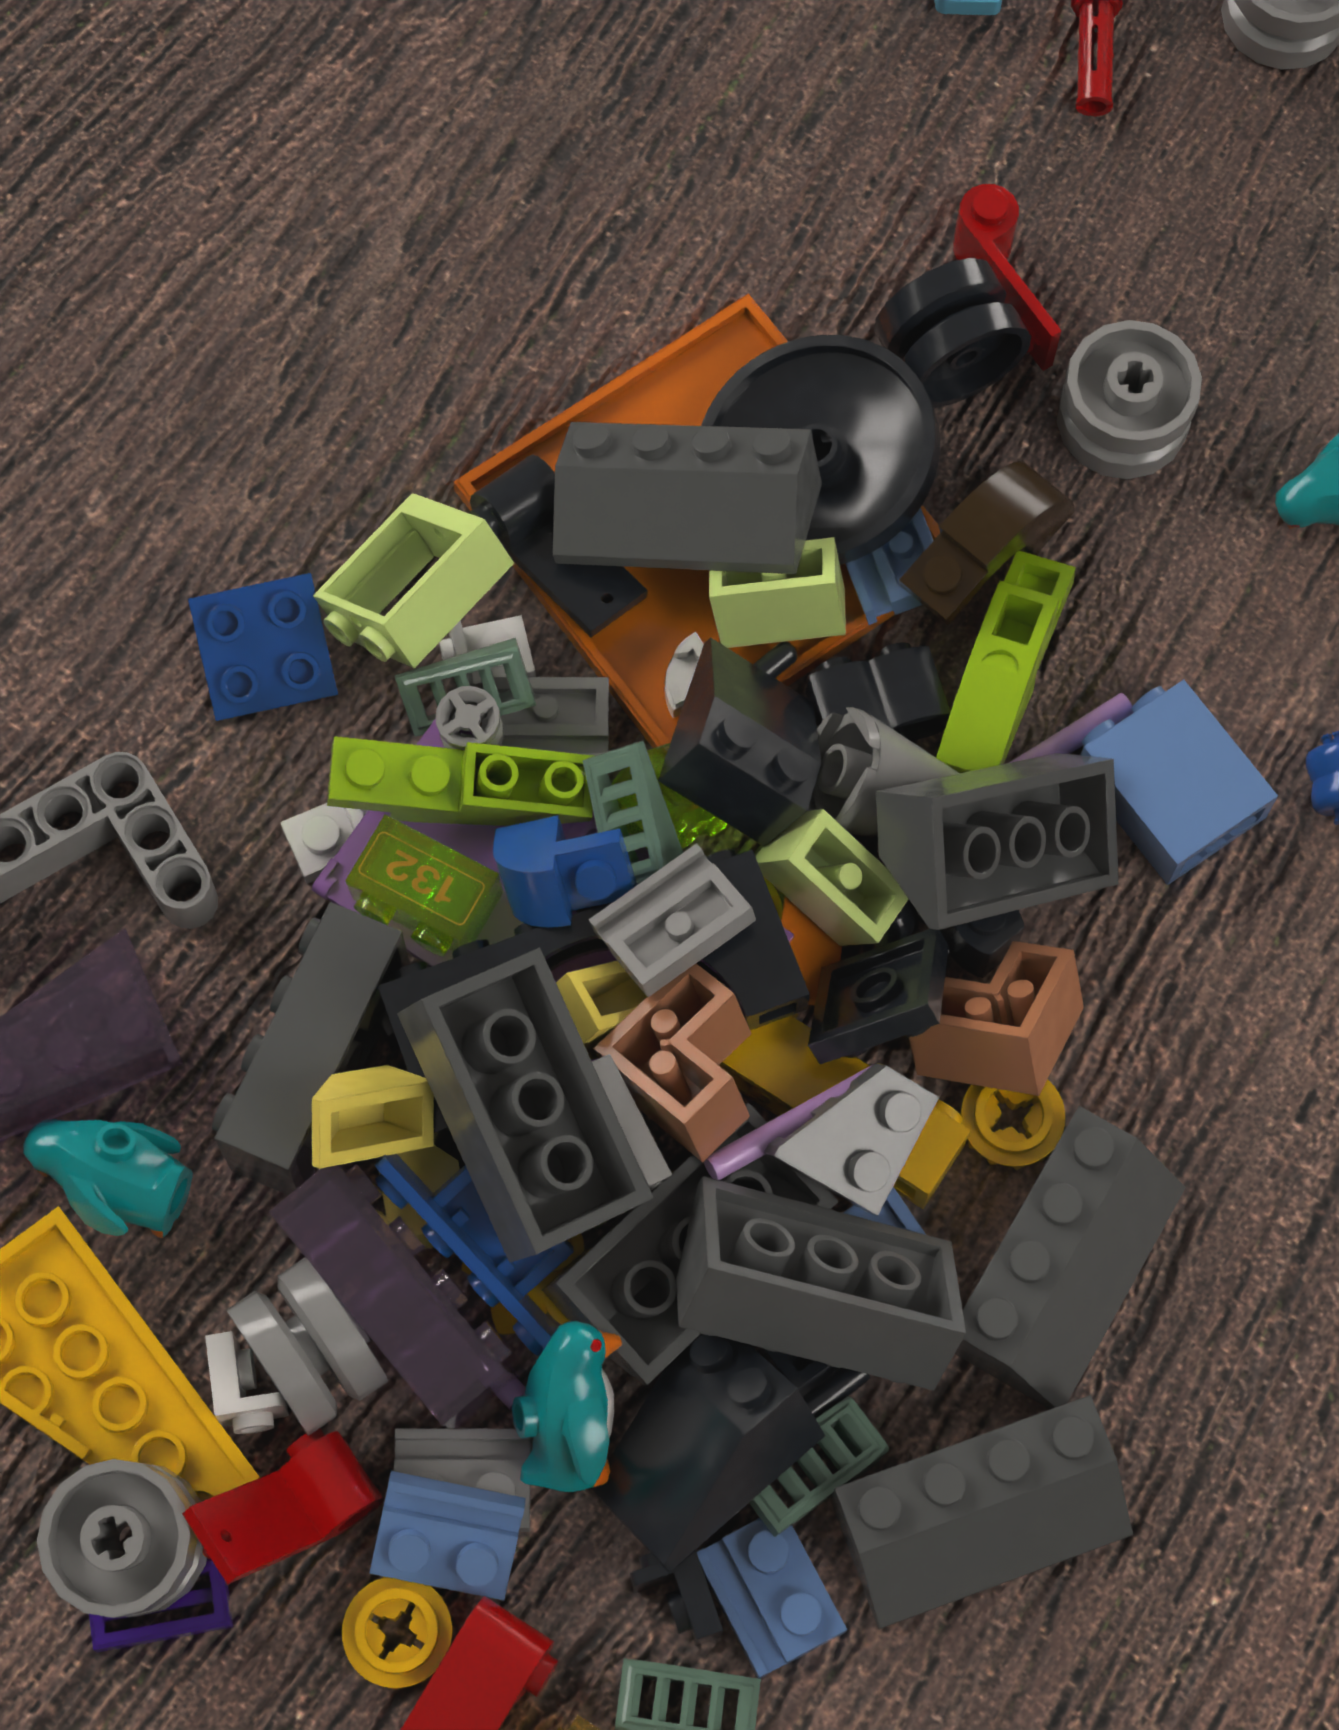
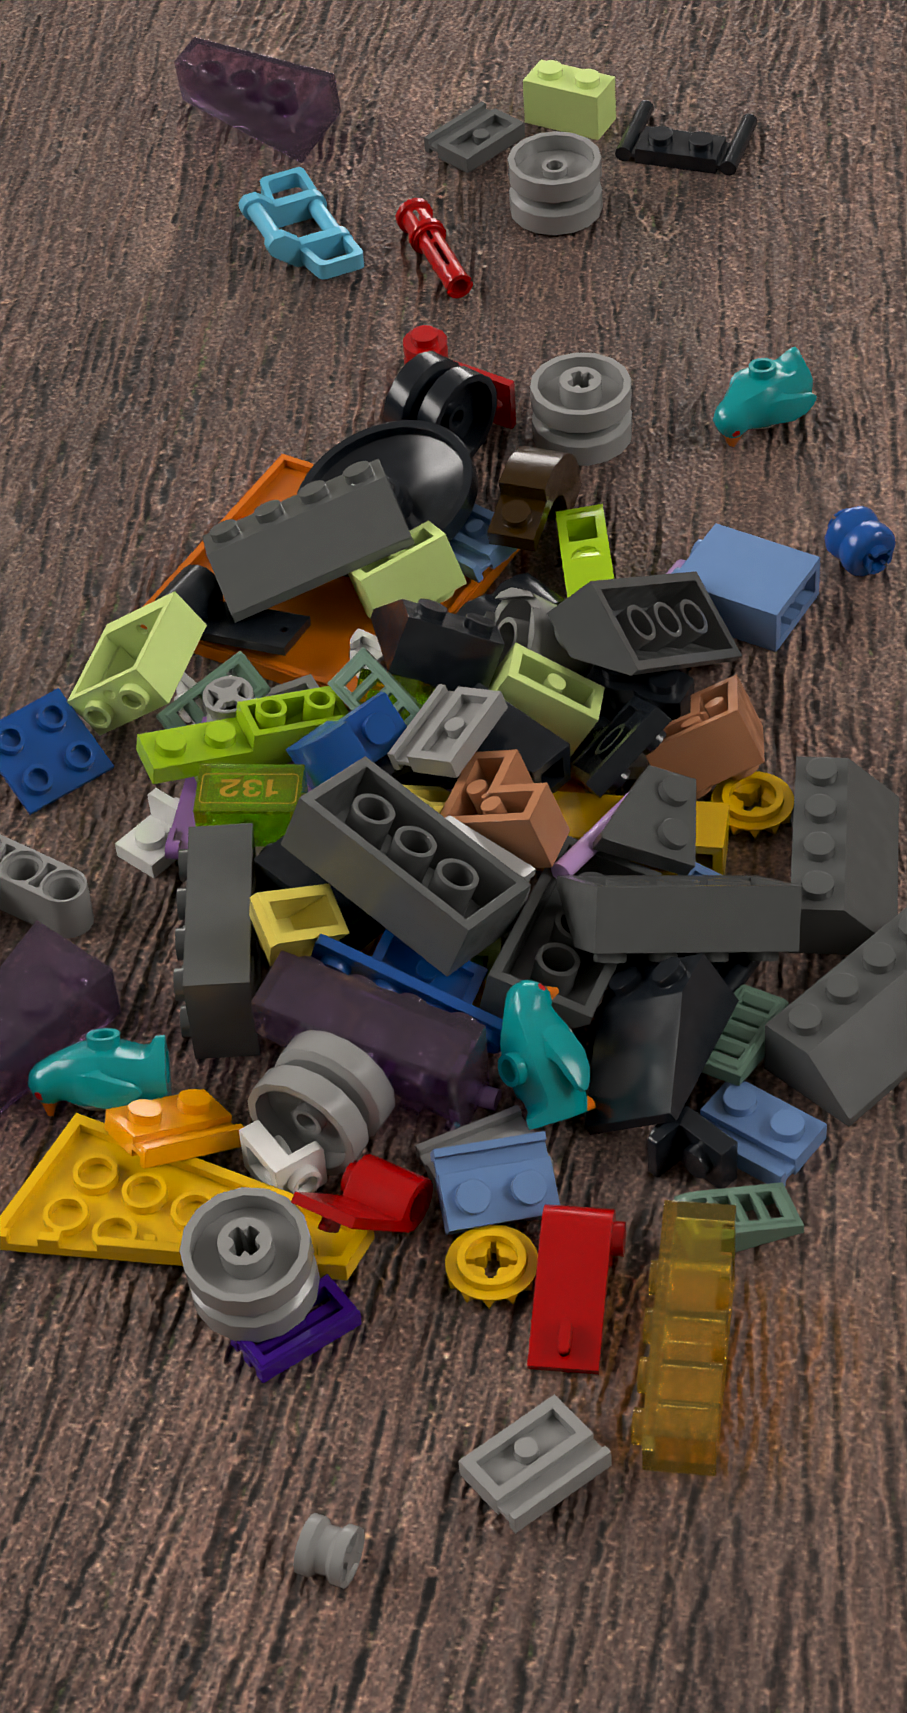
camera: 20 degrees left, 25 degrees down
(148, 1283) = (173, 1128): none -> light orange plate

